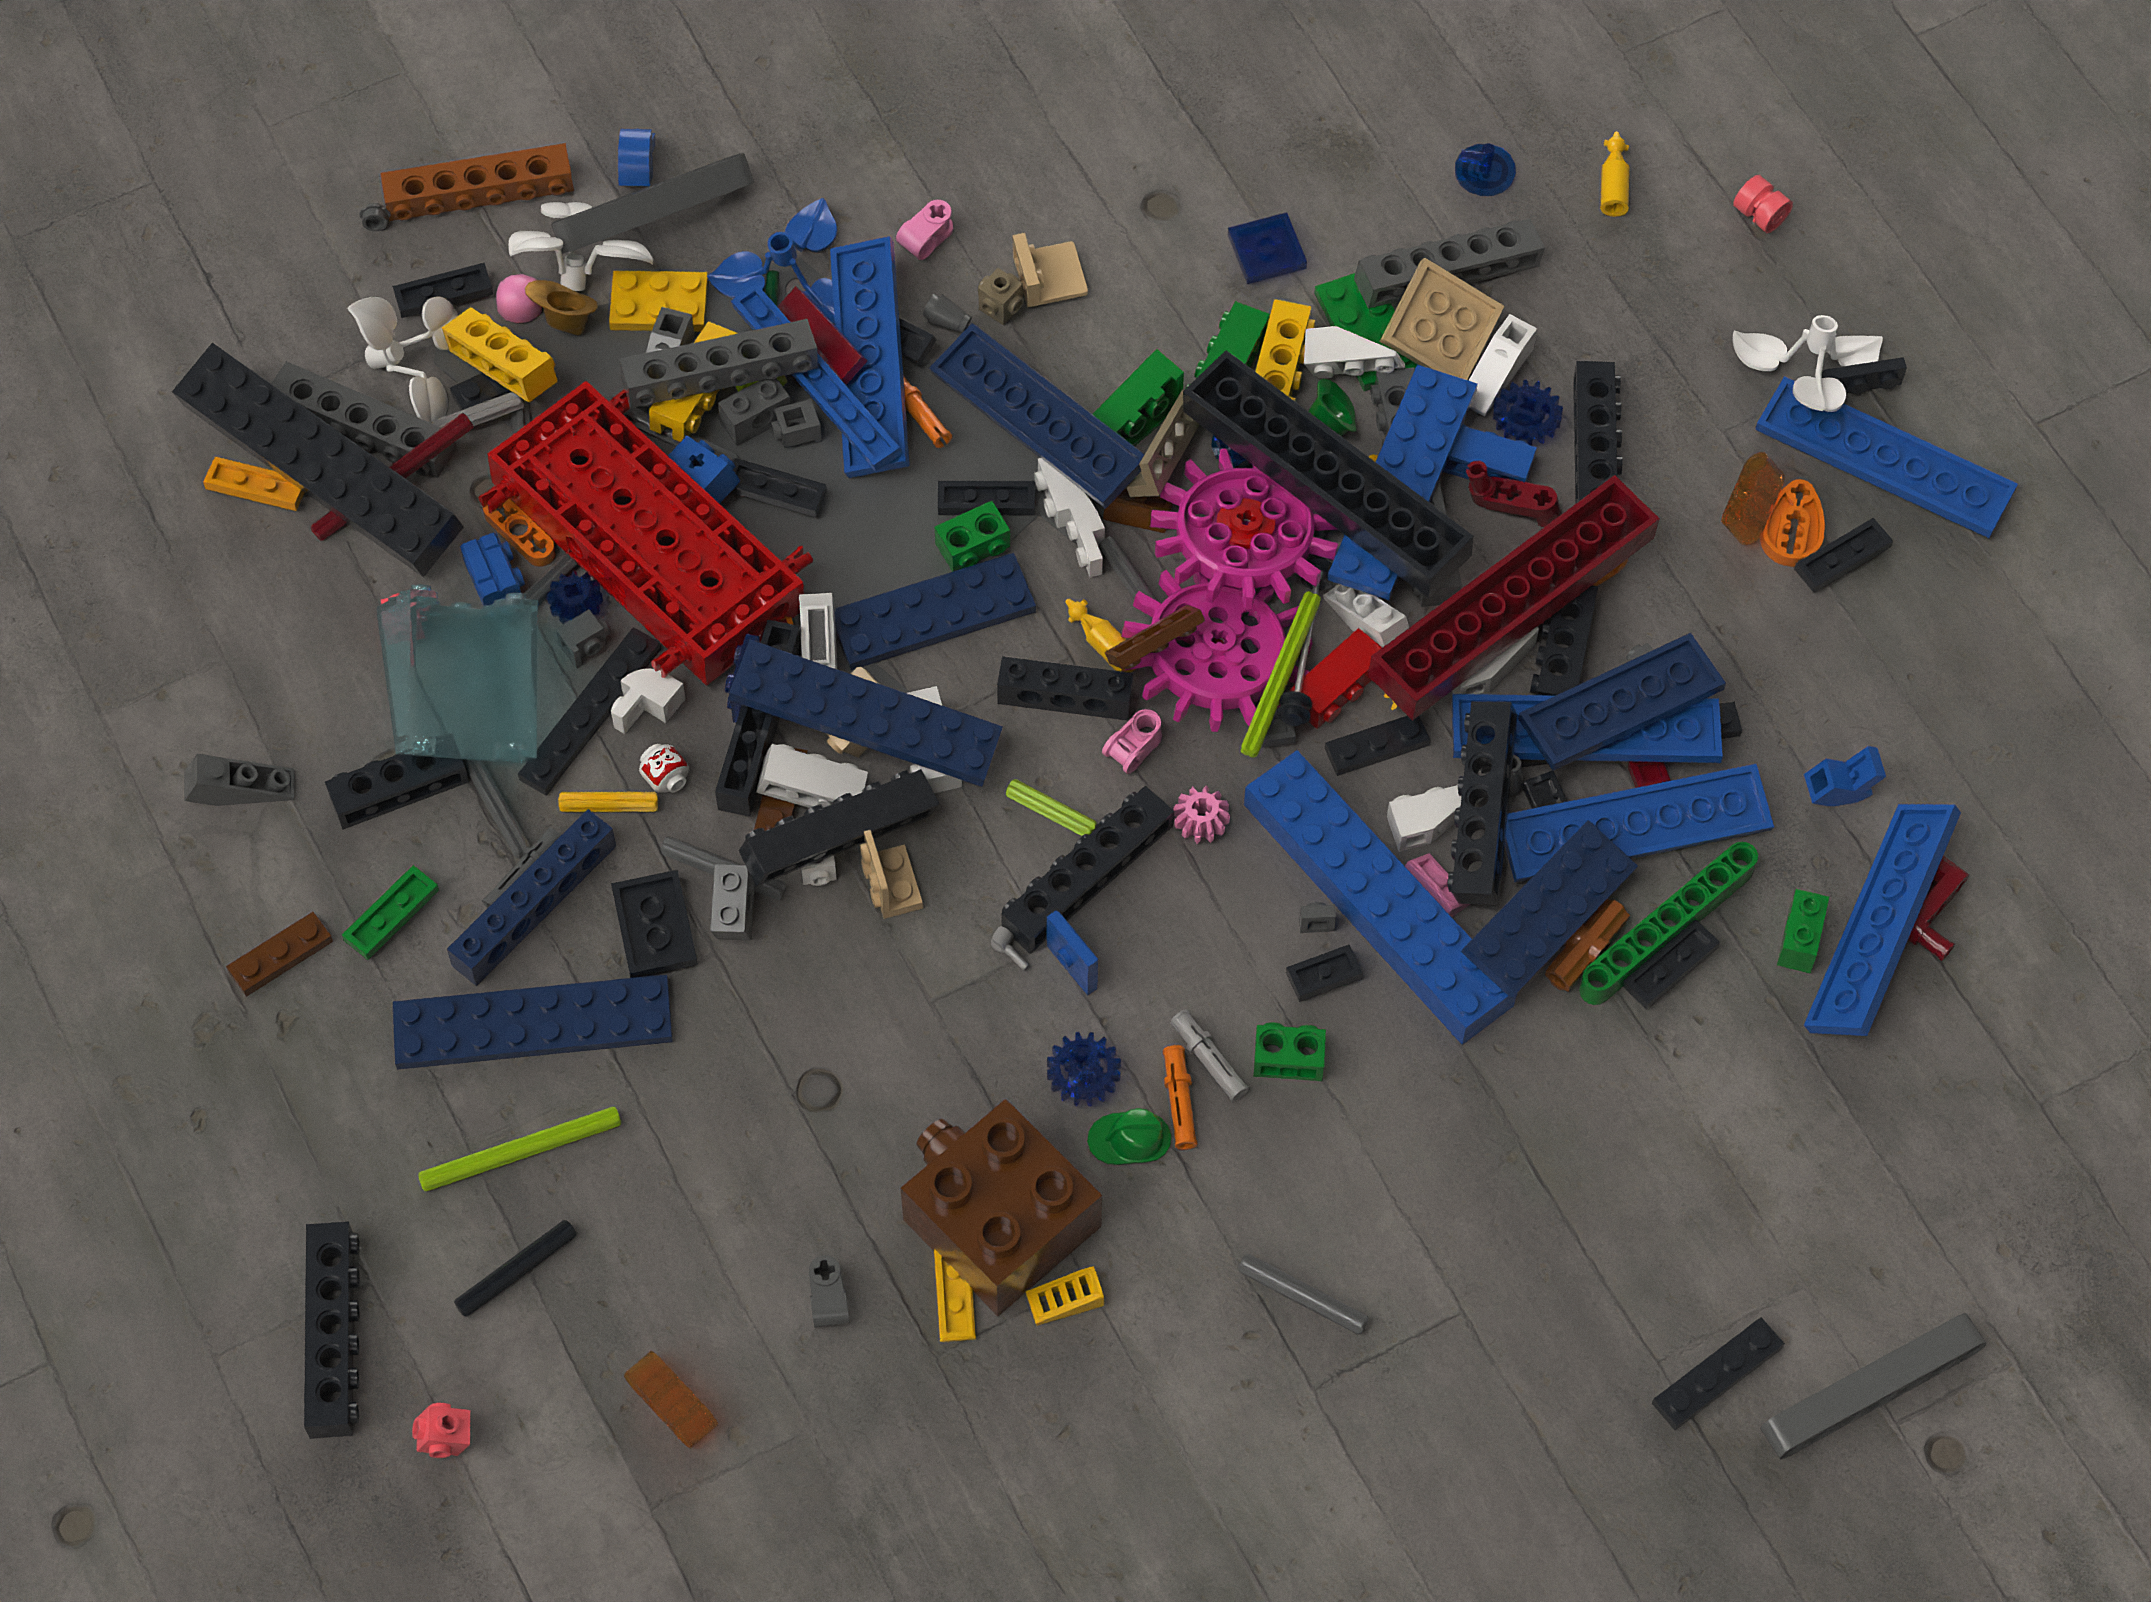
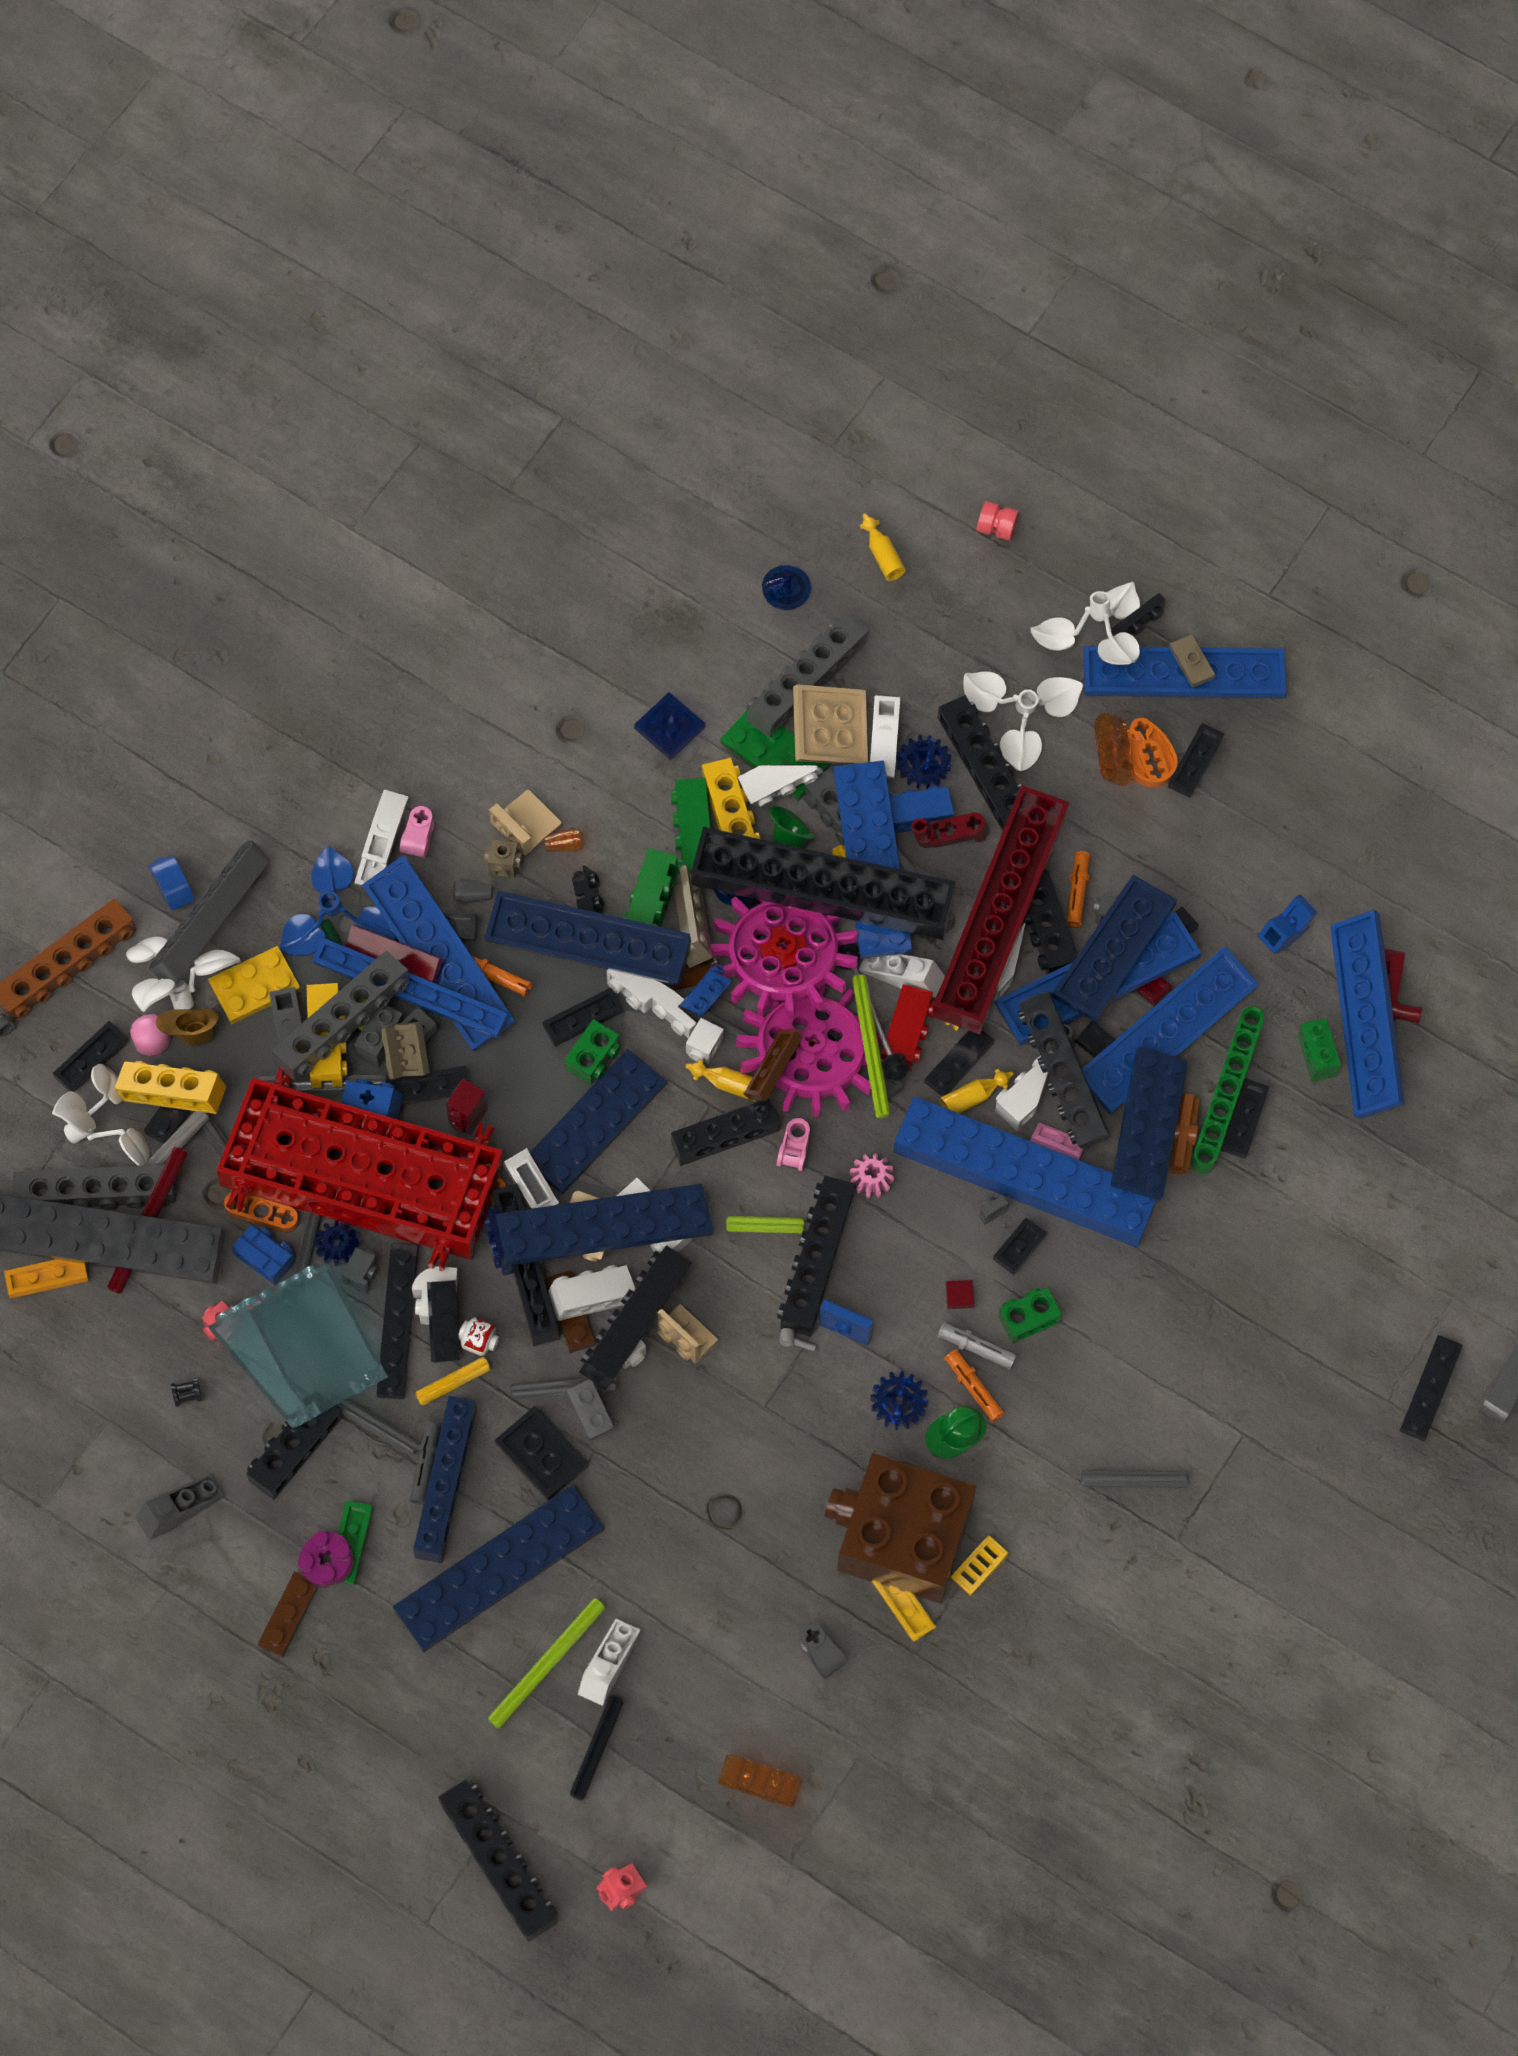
camera: 30 degrees left, 5 degrees up
(320, 670) = (194, 1394): none -> black bush
(341, 901) = (320, 1545): none -> magenta plate
(583, 1182) = (608, 1662): none -> white slope
(633, 730) = (443, 1320): none -> black plate
(766, 433) = (405, 1050): none -> dark tan bracket
(797, 523) = (466, 1107): none -> dark red brick
(888, 209) = (381, 835): none -> white slope
(1076, 366) = (587, 884): none -> black hinge
(1080, 311) = (565, 841): none -> clear orange cone
(1102, 584) = (704, 1041): none -> white brick
(1131, 527) = (707, 991): none -> blue hinge
(1224, 991) = (959, 1294): none -> dark red tile
(1373, 784) = (974, 1092): none -> yellow wheel
(1632, 616) = (1079, 880): none -> orange pin
(1652, 453) = (1020, 747): none -> white plant
(1899, 446) = (1192, 661): none -> dark tan plate

